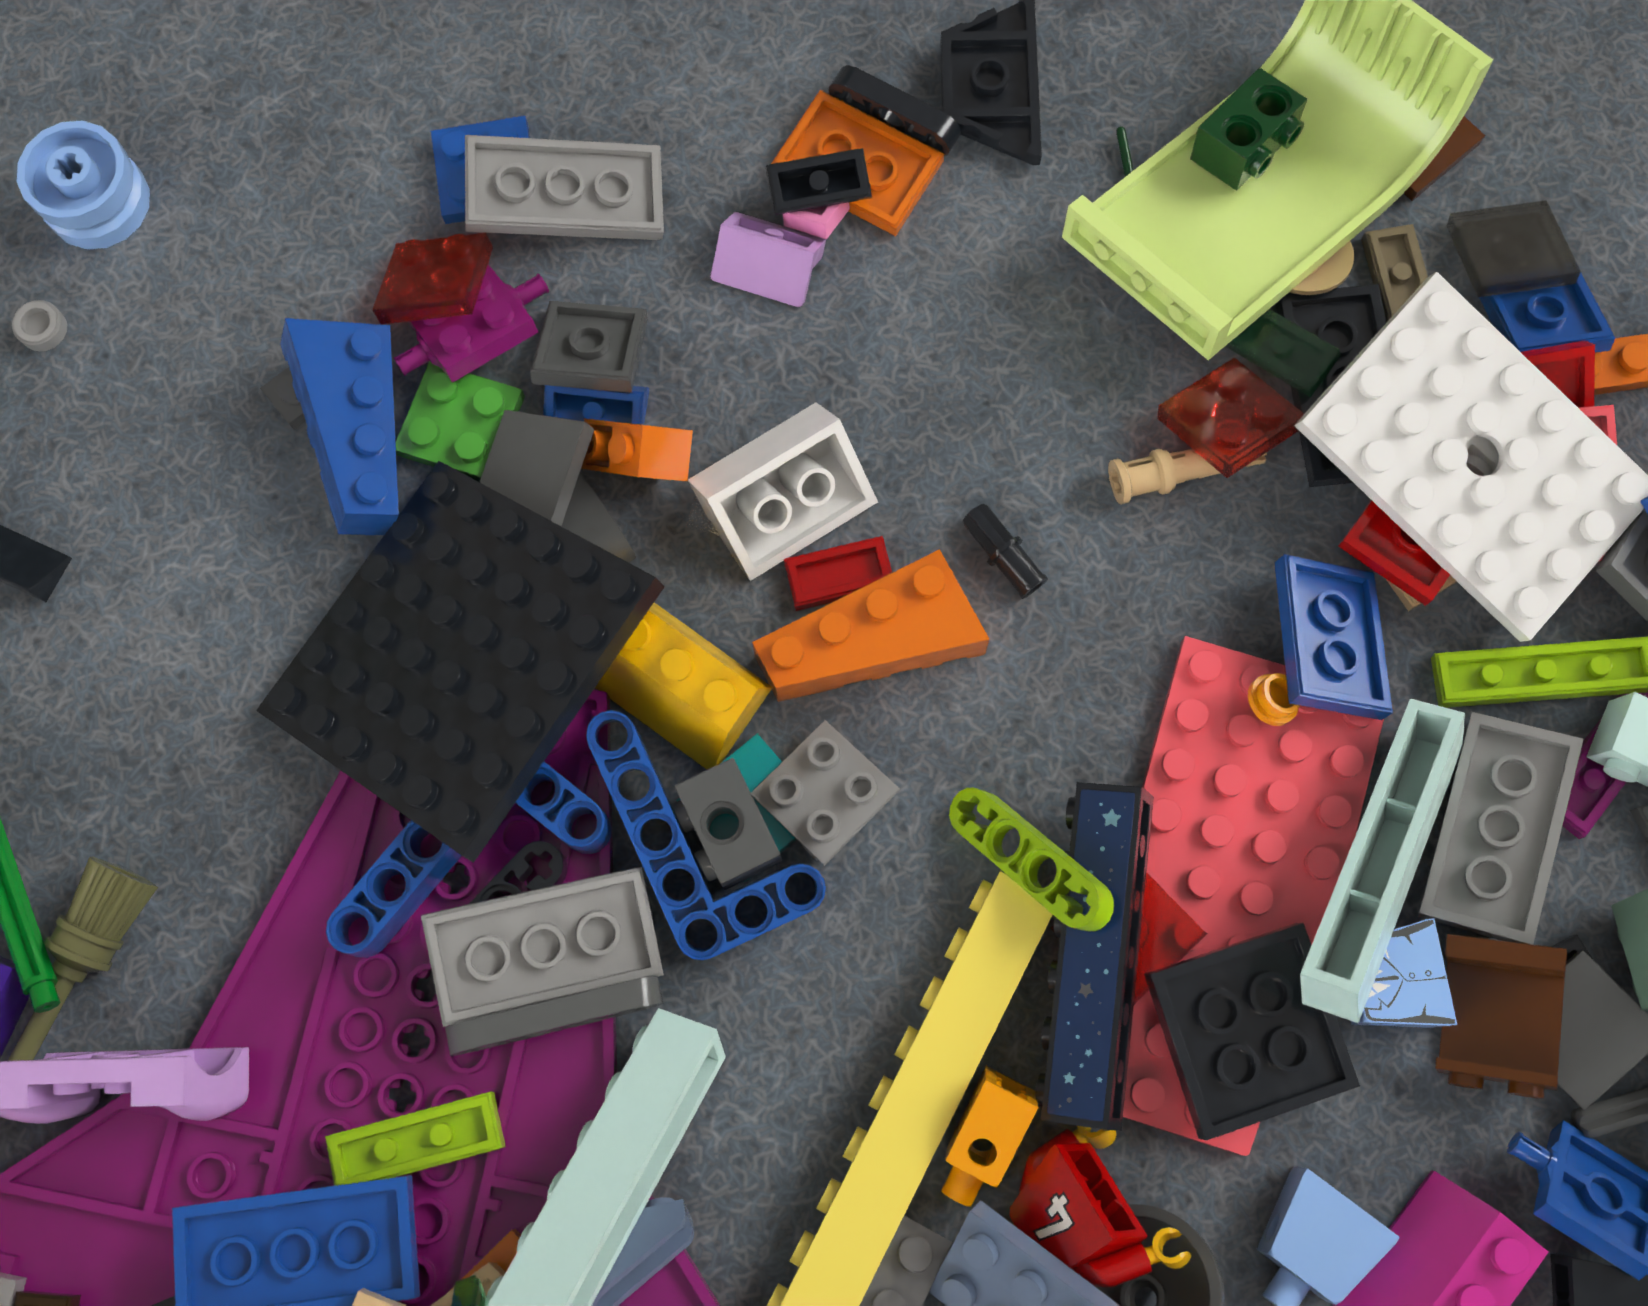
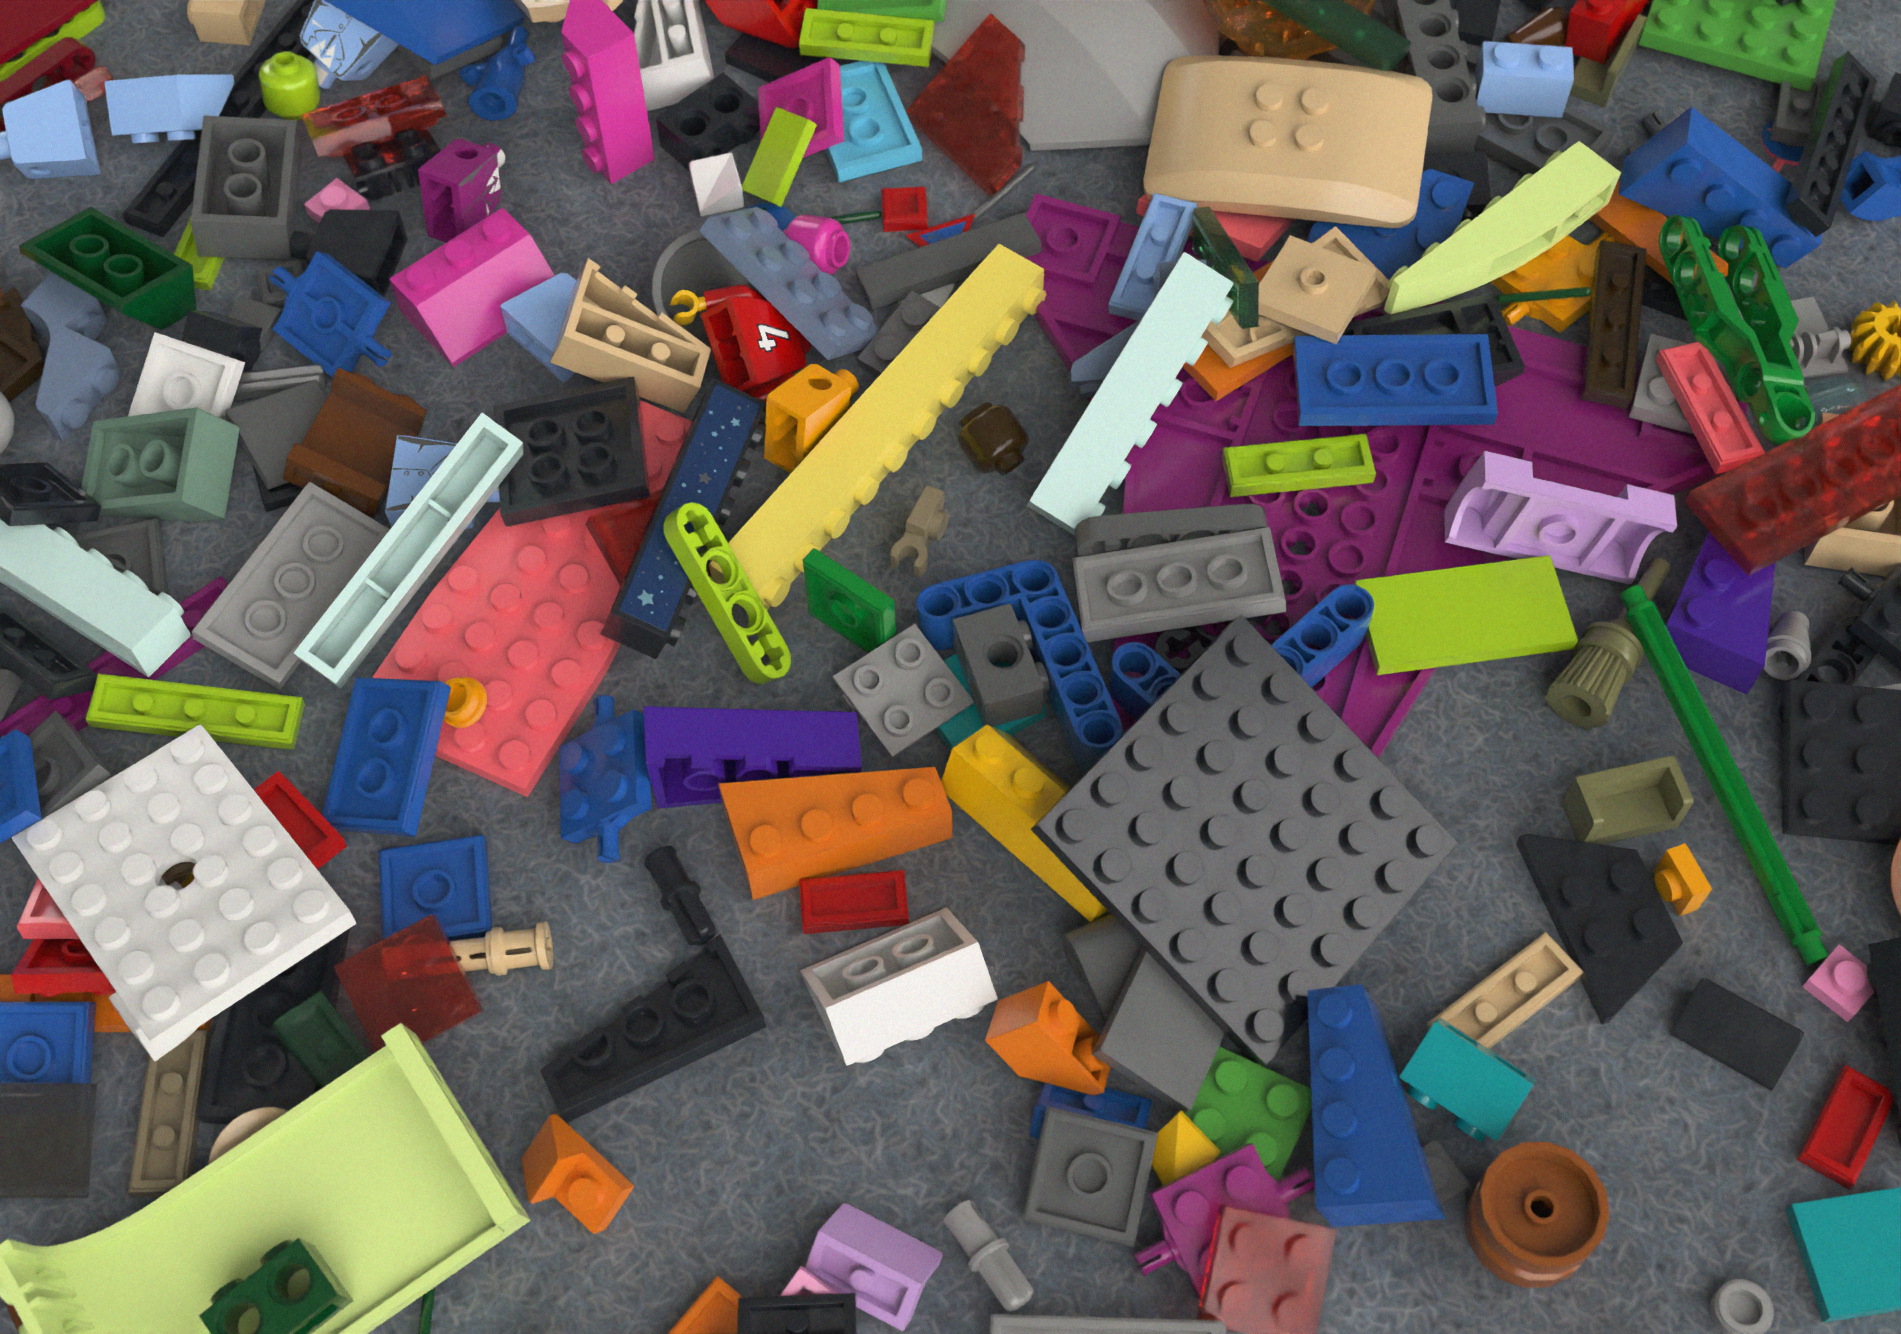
camera: 175 degrees left, 15 degrees down
(39, 696) = (1681, 880): none -> light orange plate
(83, 774) = (1627, 801): none -> olive panel
(119, 659) = (1603, 915): none -> black wing
(201, 356) = (1536, 1214): none -> dark orange wheel
(221, 564) = (1512, 992): none -> tan tile
(230, 963) = (1467, 615): none -> lime tile
(255, 467) = (1466, 1080): none -> teal brick
(510, 373) = (1181, 1149): none -> yellow slope
(671, 275) = (988, 1255): none -> light grey axle
(772, 1138) = (993, 439): none -> dark brown head
(831, 1008) = (924, 523): none -> dark tan plate
(895, 868) = (847, 602): none -> green tile
(966, 693) = (701, 747): none -> dark purple wedge
(985, 425) = (675, 1025): none -> black wing
(1046, 290) = (575, 1174): none -> orange slope
(1106, 647) = (604, 778): none -> blue plate
(1234, 1188) = (617, 338): none -> tan wedge
(1238, 525) = (438, 880): none -> blue tile

